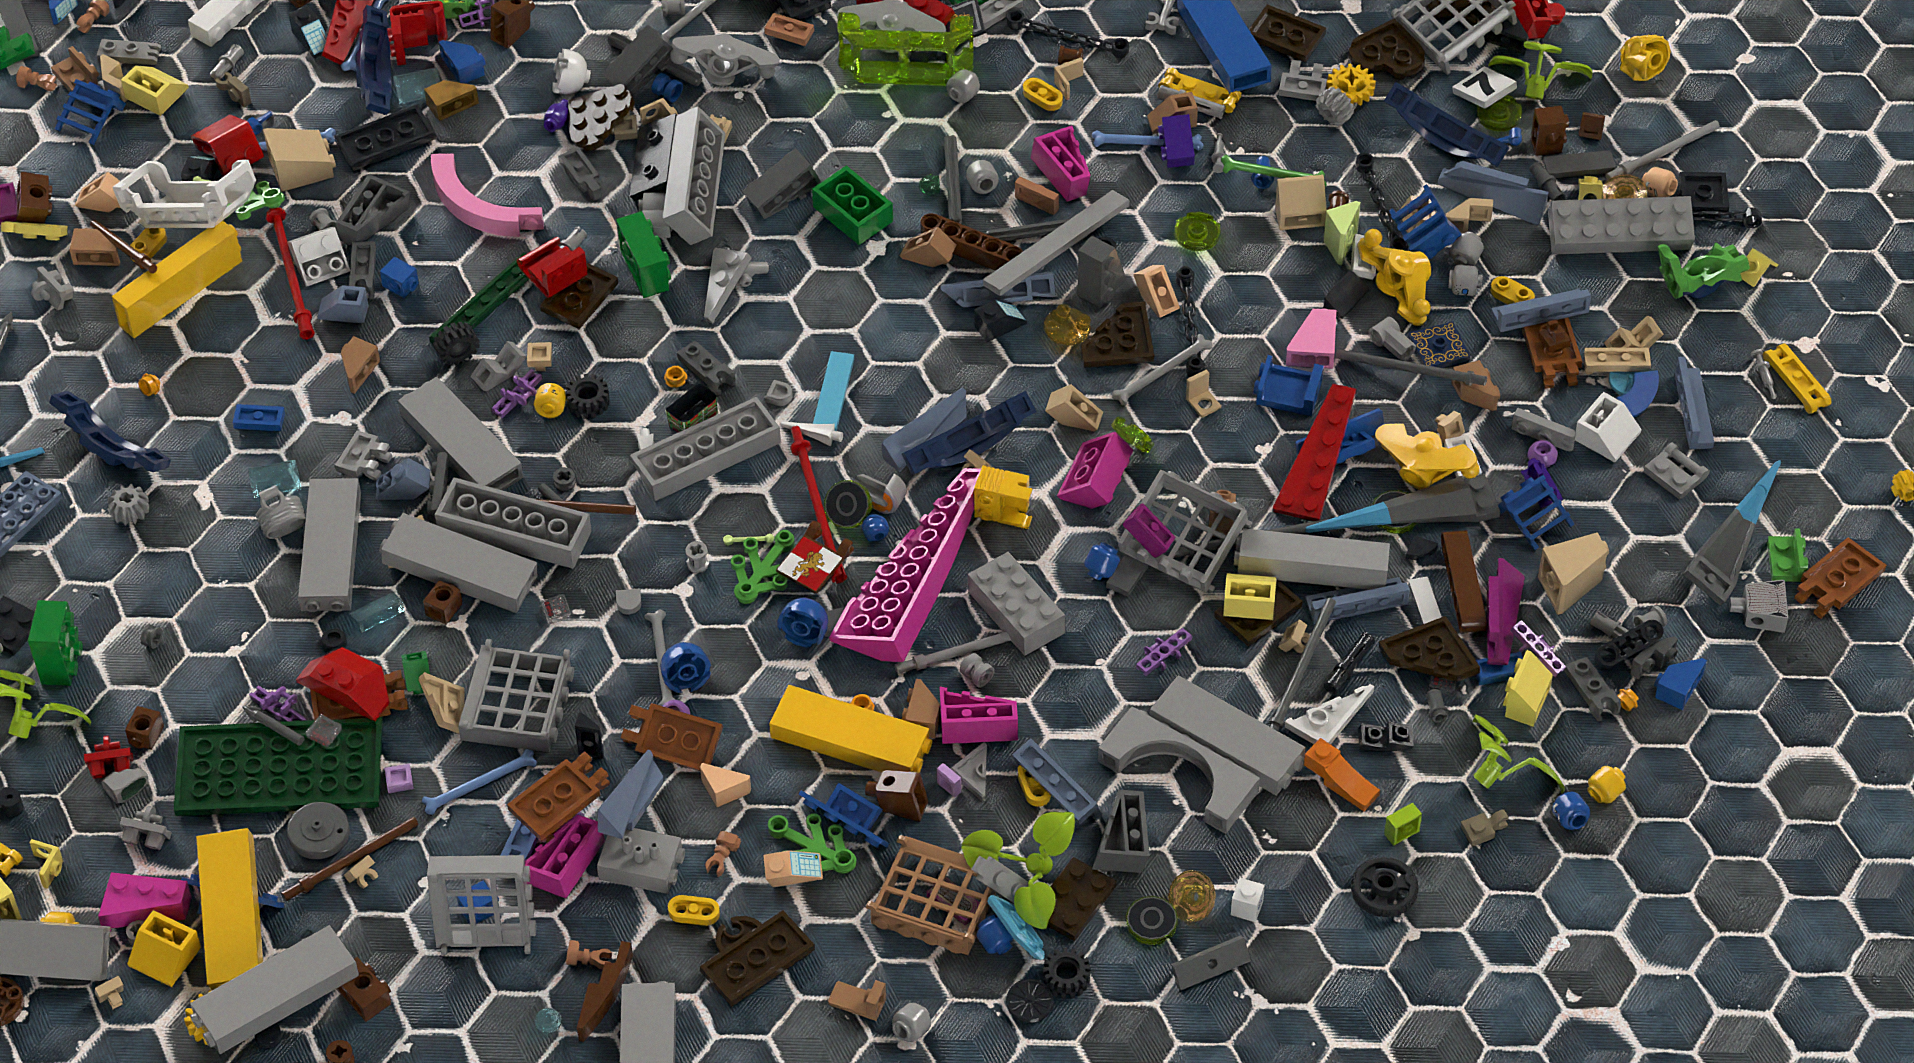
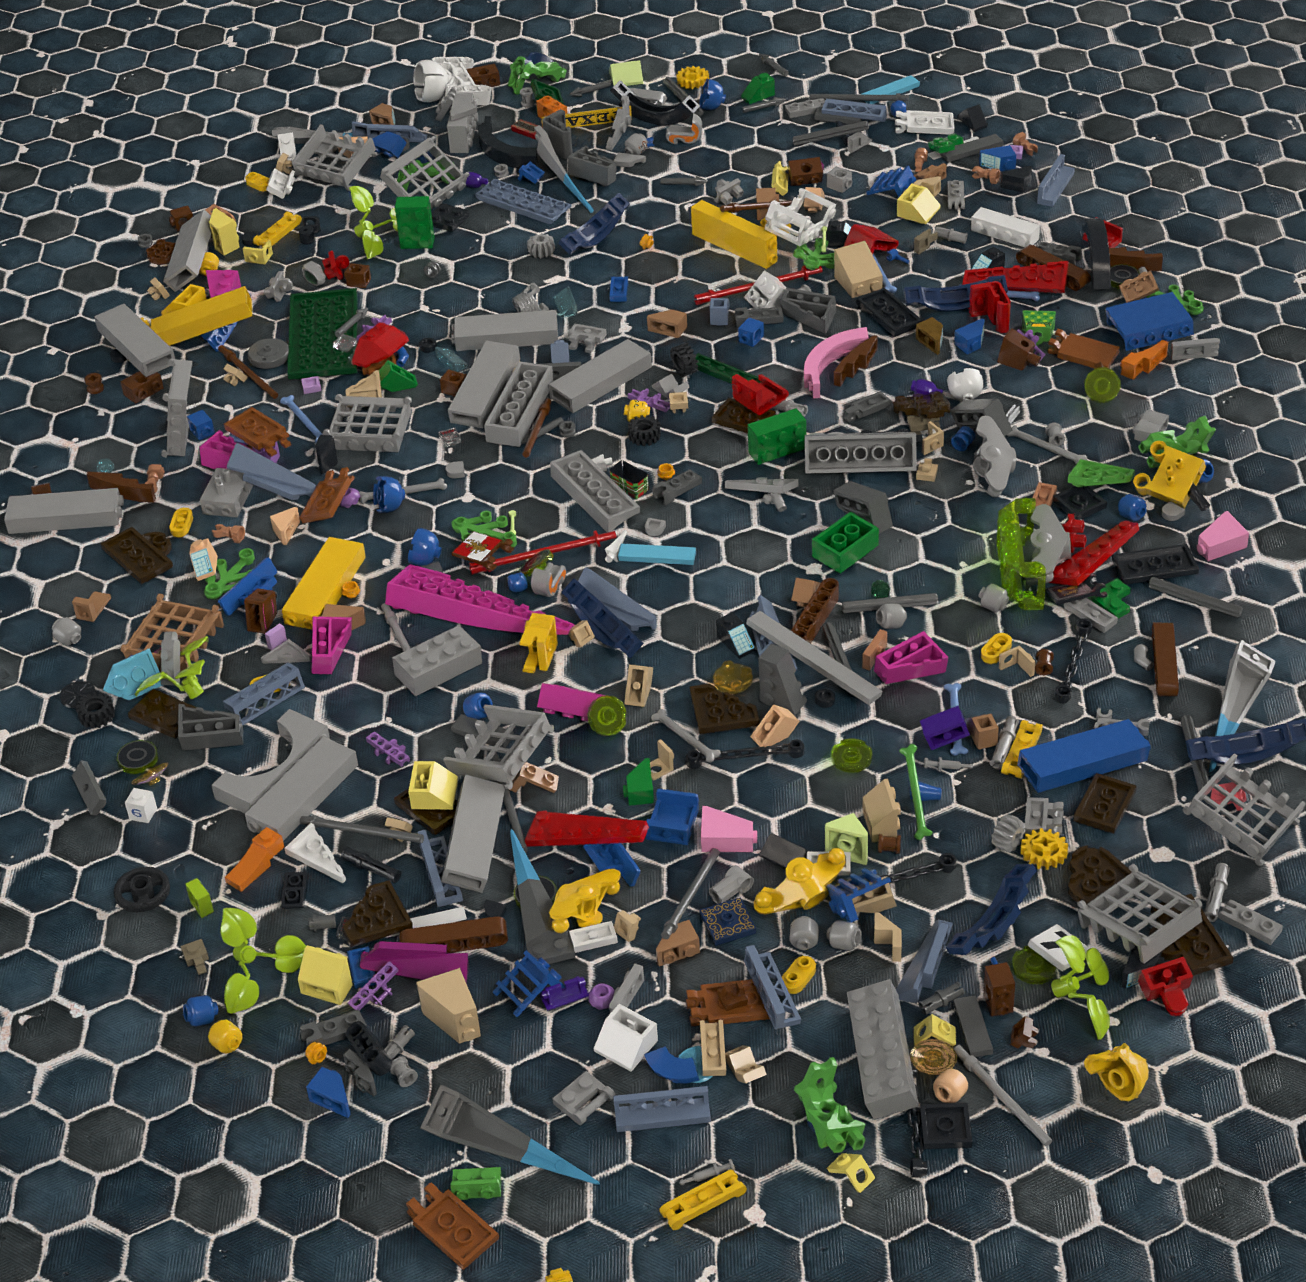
camera: 90 degrees right, 10 degrees down
(60, 165) = (839, 179): none -> light grey brick
(412, 85) = (947, 319): clear light blue slope -> none
(481, 172) = (857, 358): none -> reddish brown slope
(700, 559) = (490, 492): light grey bush -> none
(977, 670) = (377, 645): light grey wheel -> none
(1149, 531) = (494, 720): magenta slope -> none
(1238, 410) = (639, 785): none -> green slope
(1763, 605) = (414, 1159): light grey torso -> none

